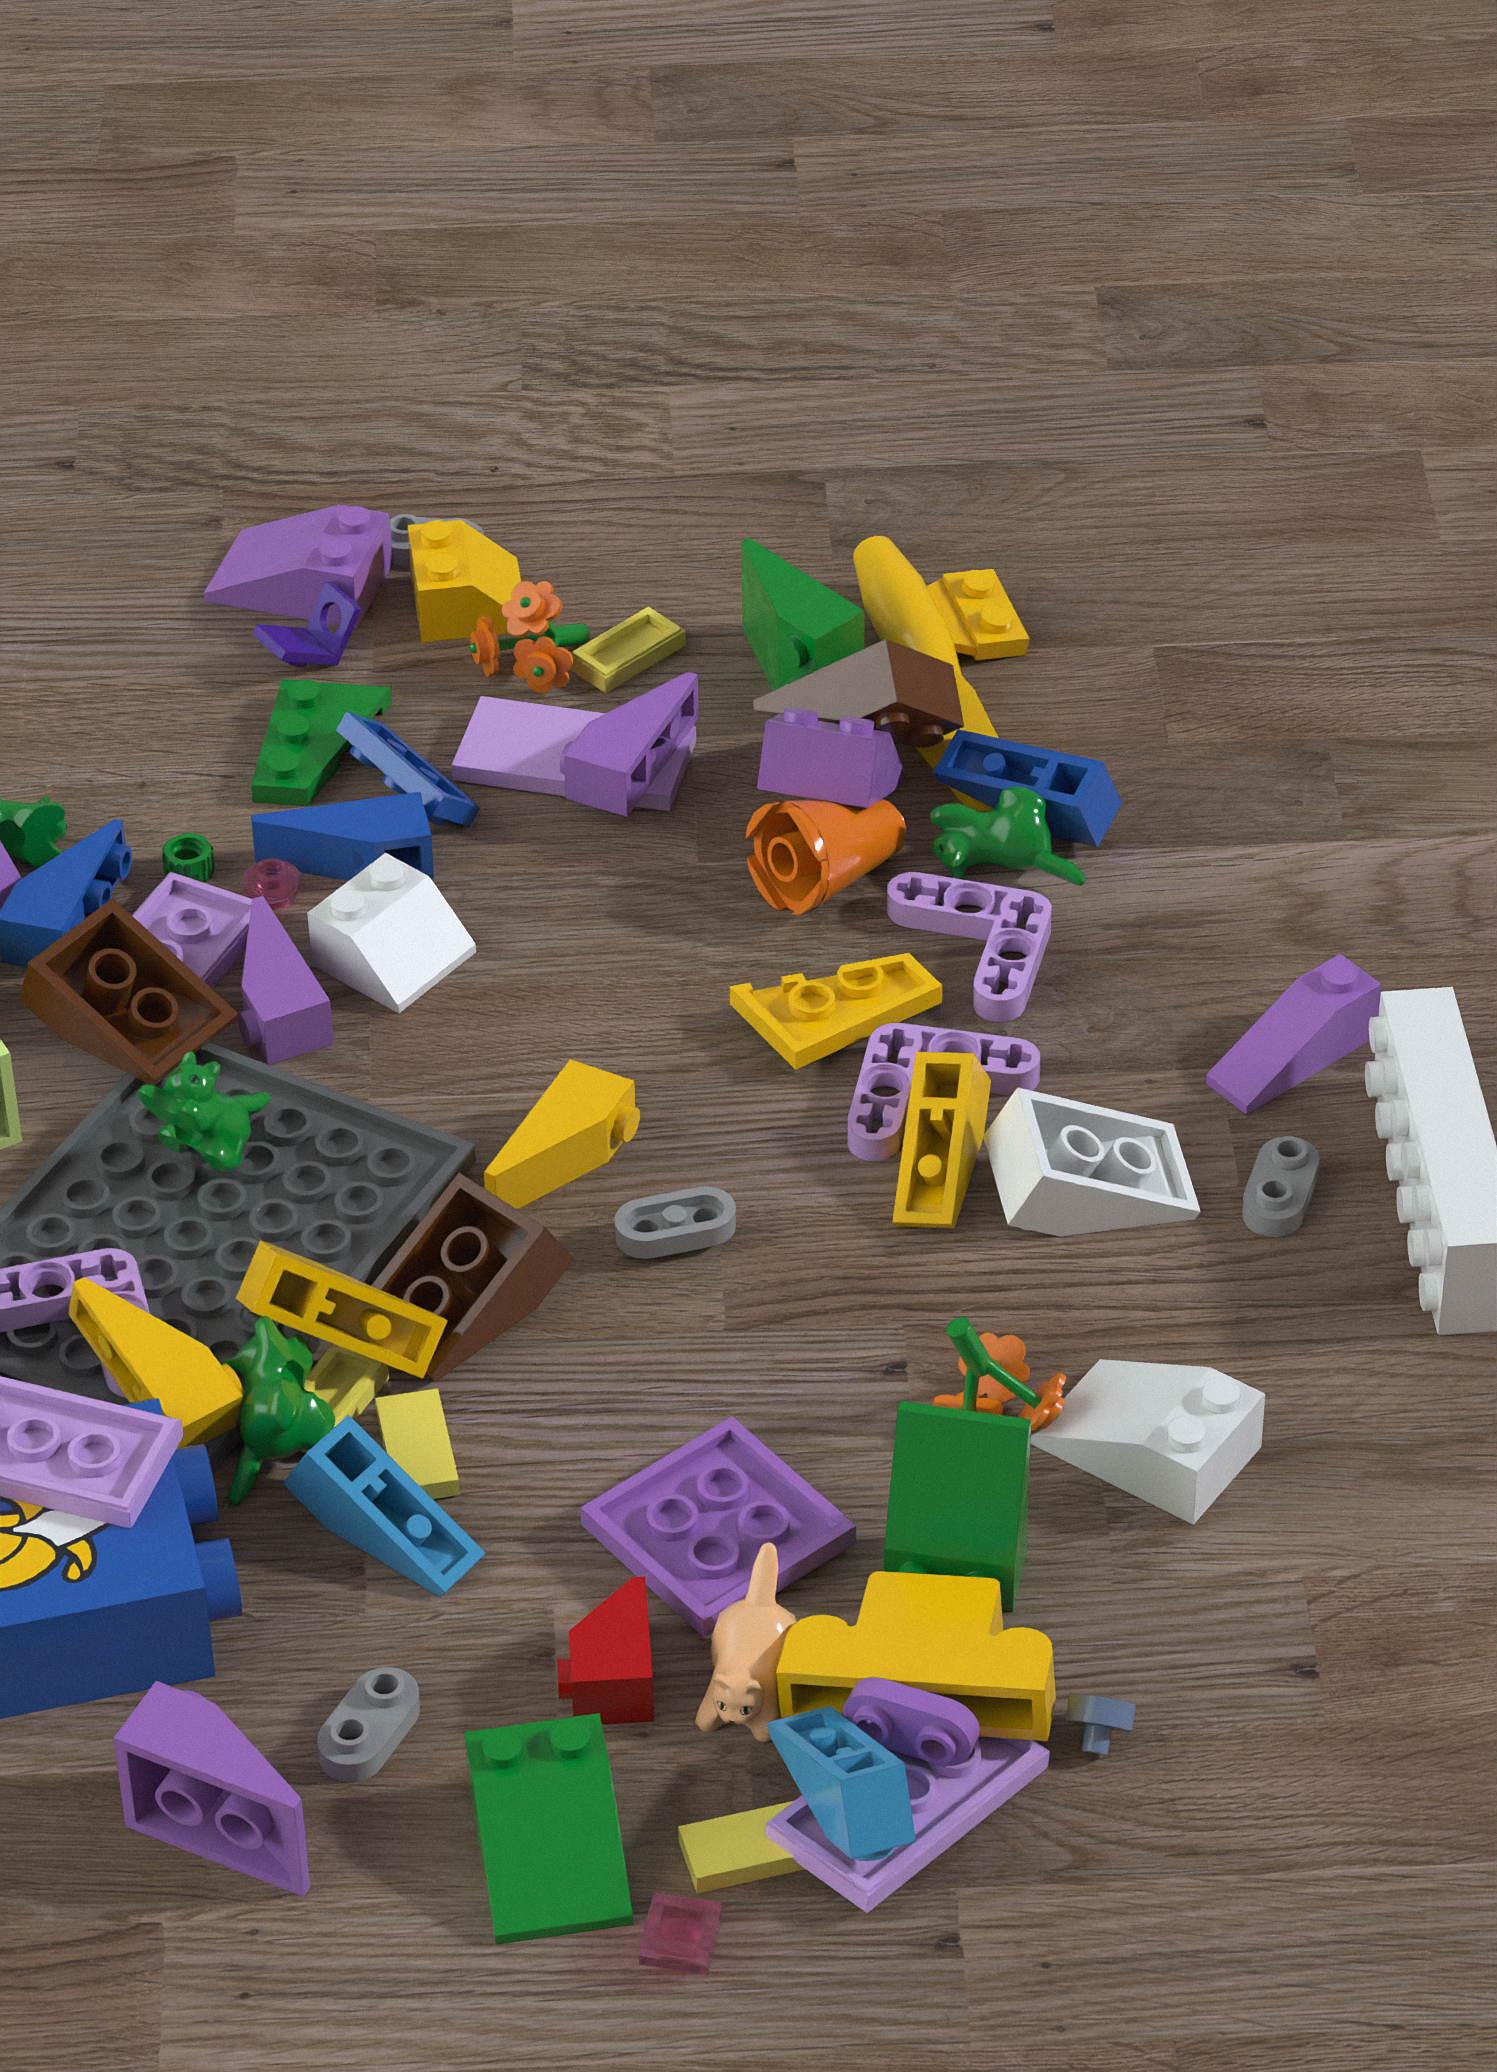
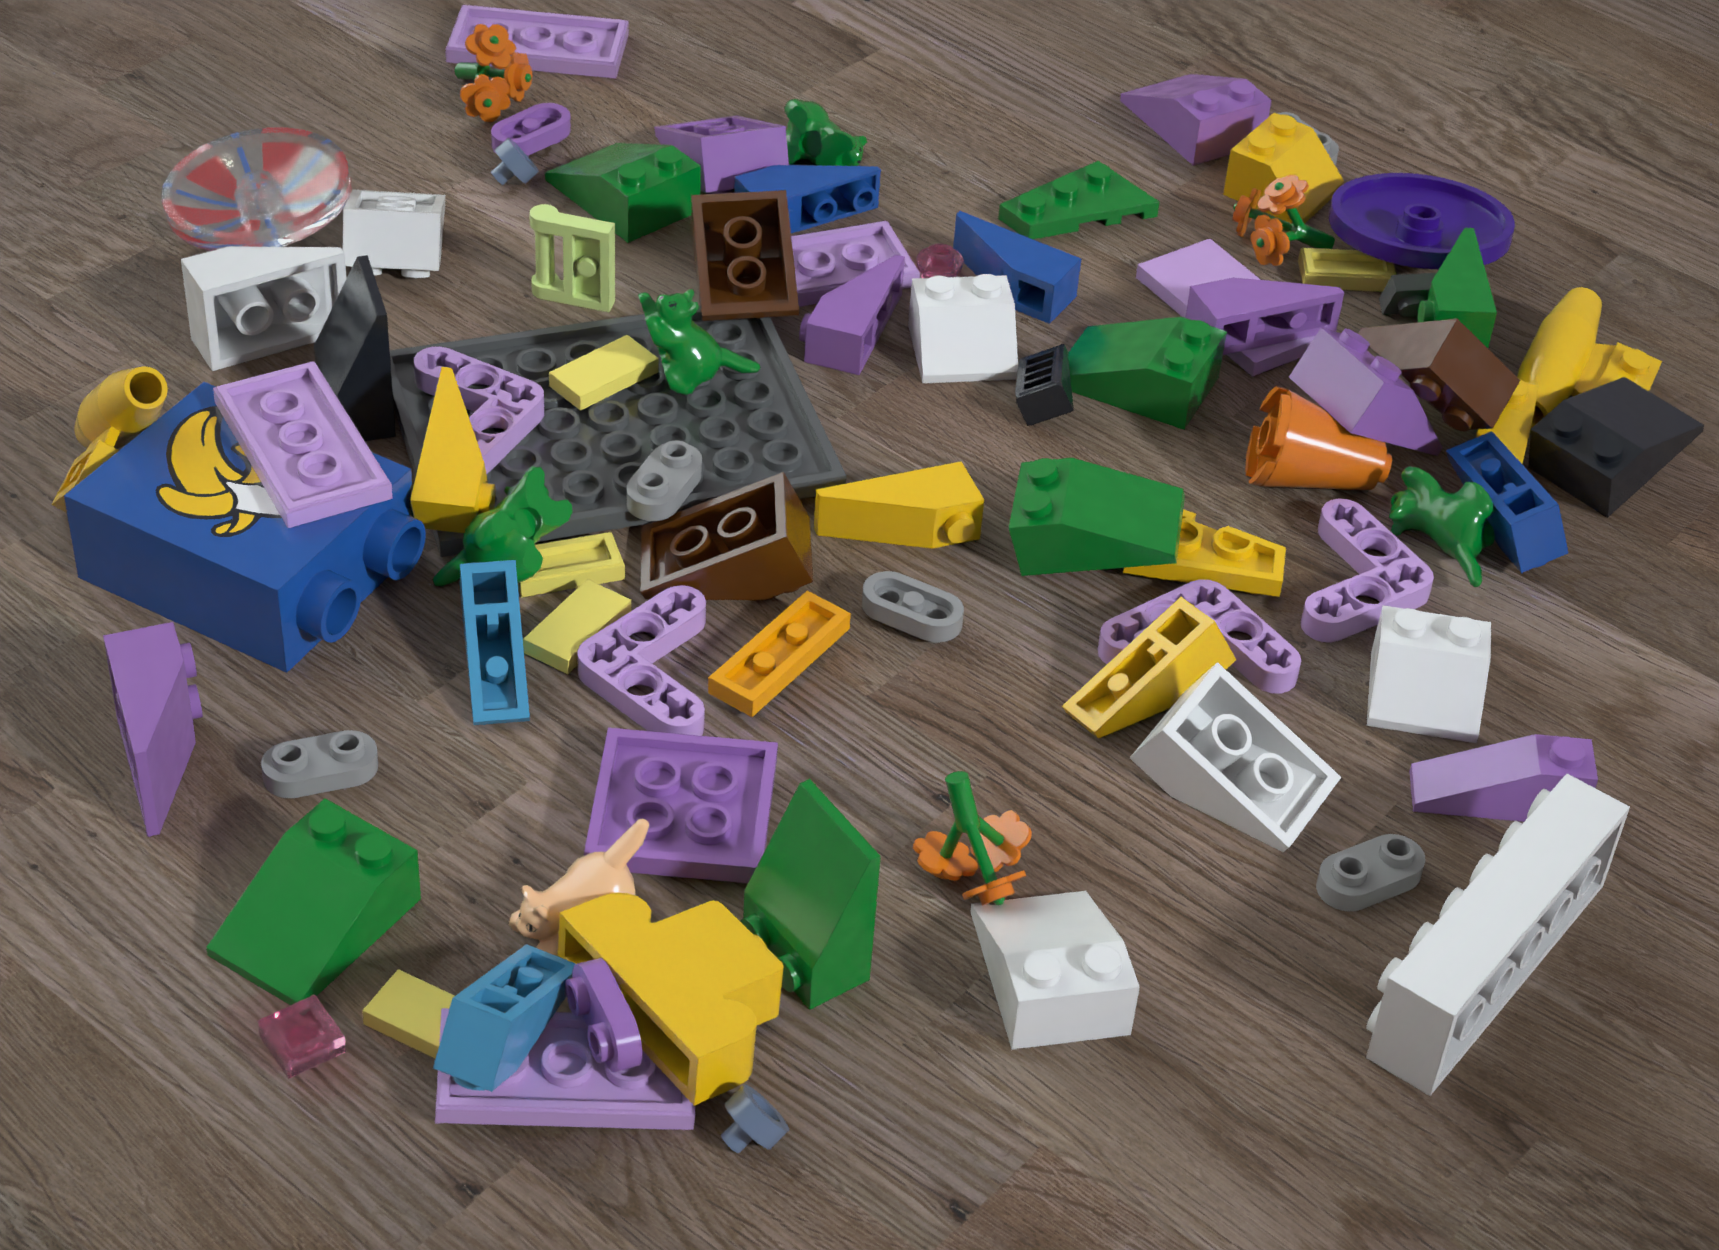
camera: 40 degrees right, 0 degrees up
(140, 1197) = (603, 372): none -> light yellow tile
(193, 847) = (910, 222): green axle -> none
(315, 642) = (1140, 152): dark purple bracket -> none
(336, 1242) = (664, 481): none -> light grey plate
(340, 1309) = (609, 502): yellow slope -> none
(406, 769) = (1104, 250): blue plate -> none
(513, 1449) = (614, 662): none -> lavender beam
(546, 957) = (1044, 385): none -> black slope
(582, 863) = (1149, 366): none -> green slope
(611, 1659) = (503, 833): red slope -> none
(623, 1343) = (779, 653): none -> light orange plate
(650, 557) = (1418, 218): none -> dark purple dish
(721, 640) = (1405, 293): none -> dark grey plate
(735, 1036) = (1092, 518): none -> green slope
(1046, 676) = (1609, 442): none -> black slope
(1141, 986) = (1429, 673): none -> white slope

